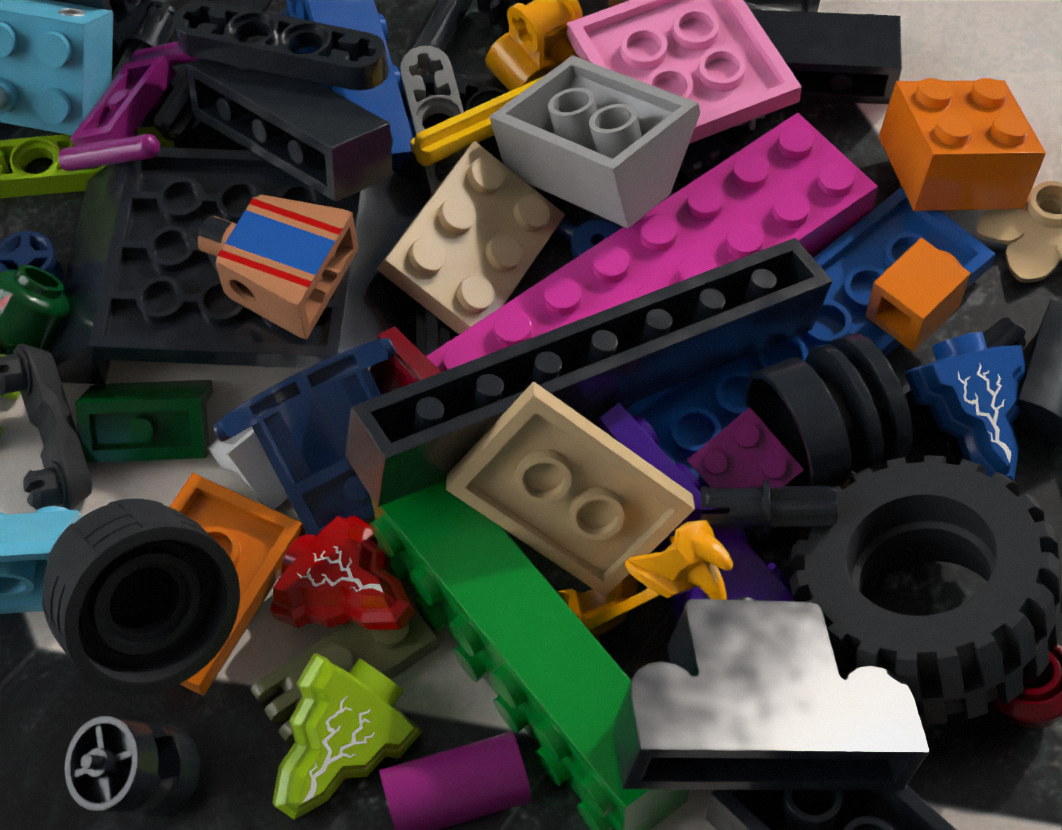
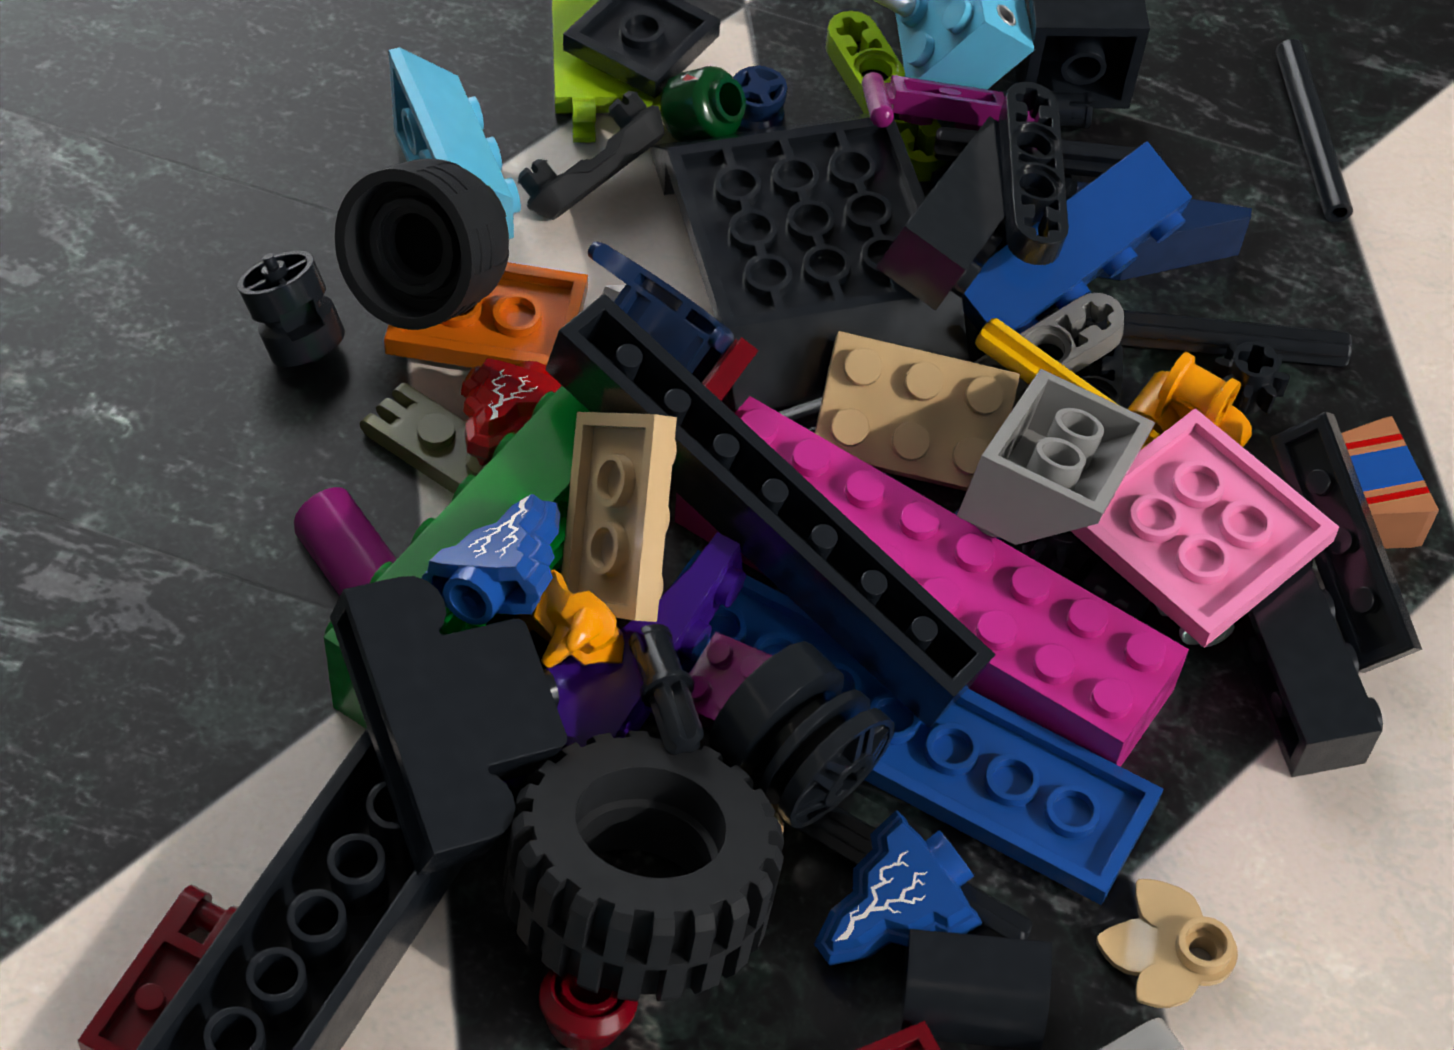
camera: 65 degrees right, 5 degrees down
(144, 421) = (636, 222): dark green panel -> none
(282, 258) = (798, 249): nougat torso -> none
(339, 732) = (375, 450): lime rock -> none
(611, 607) = (500, 564): none -> blue rock
(917, 294) = (1002, 808): orange brick -> none
(960, 145) = (1225, 820): orange brick -> none

